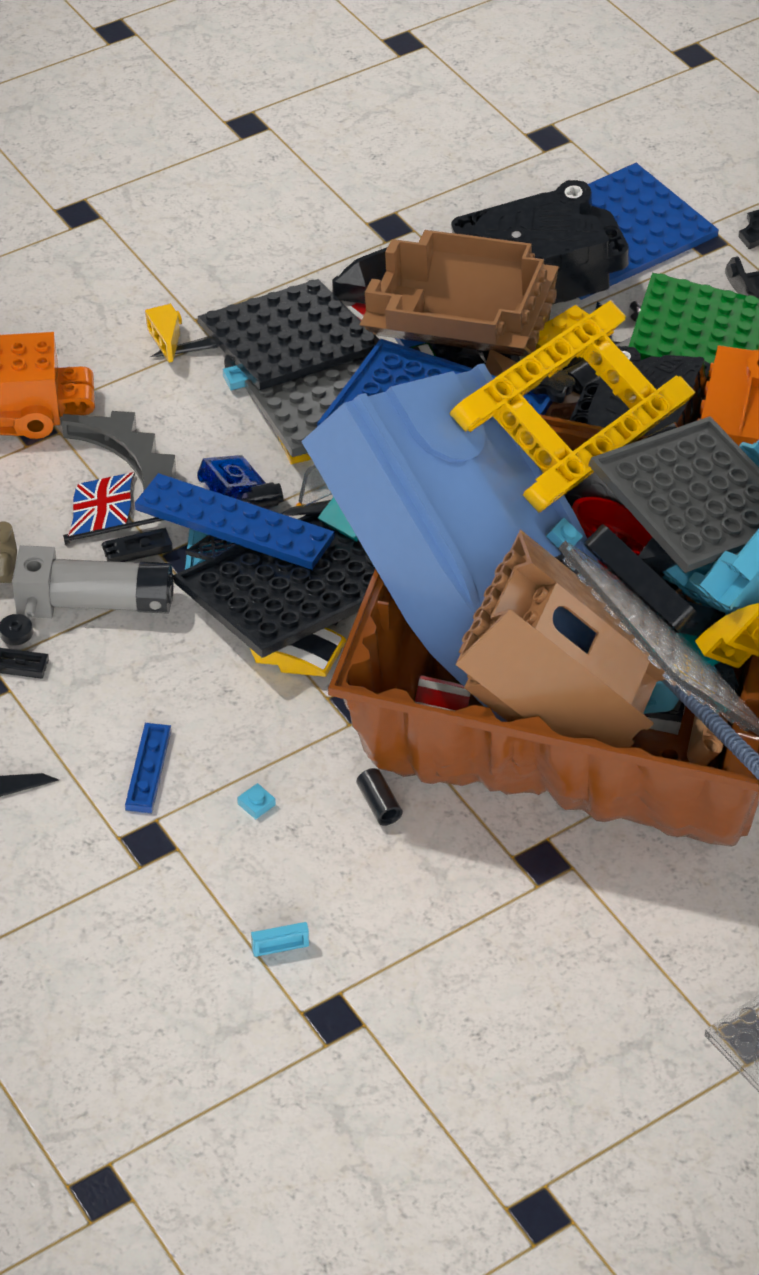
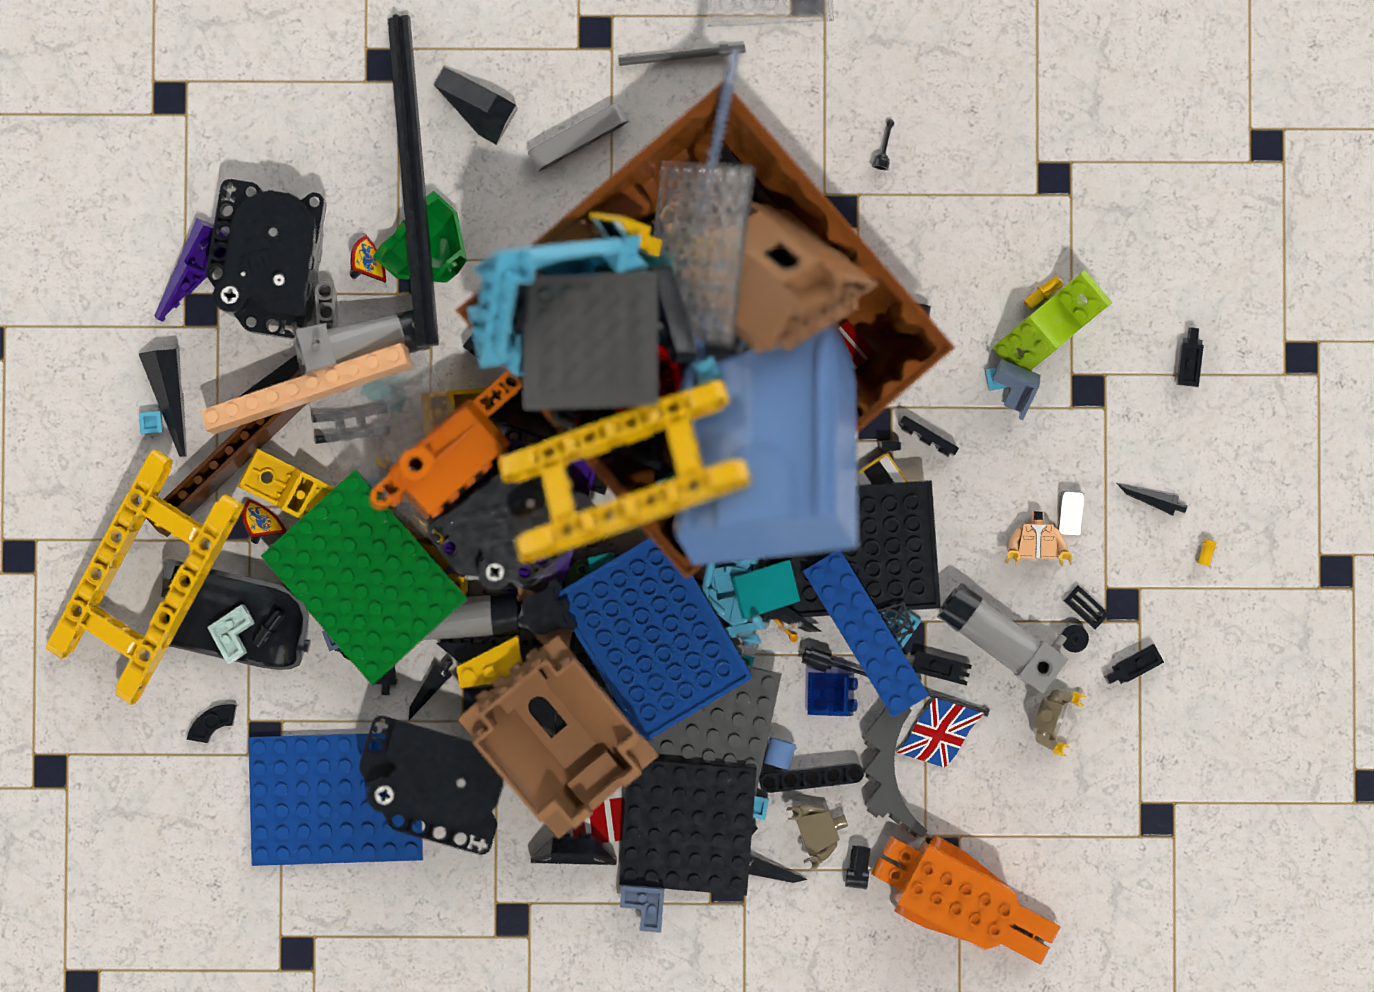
camera: 145 degrees left, 40 degrees up
(51, 922) = (1190, 359): none -> black hinge
(93, 729) = (1071, 512): none -> slope
(107, 377) = (857, 873): none -> black piece
(111, 682) = (1038, 541): none -> light nougat torso
(148, 768) = (1052, 454): blue tile -> none
(164, 328) = (781, 895): yellow slope -> none
(167, 383) = (817, 831): none -> dark tan torso
(202, 415) = (822, 780): none -> black beam
(233, 855) = (1053, 323): none -> lime bracket
(234, 788) = (1022, 384): none -> sand blue panel
(246, 415) = (779, 753): none -> medium blue piece
(264, 898) = (1043, 293): none -> yellow axle
(280, 274) = (650, 902): none -> sand blue panel
(280, 939) = (1054, 251): medium azure tile -> none
(292, 712) = (928, 437): none -> black plate
(321, 684) = (889, 446): none -> black tile
(538, 924) = (882, 161): none -> black hinge

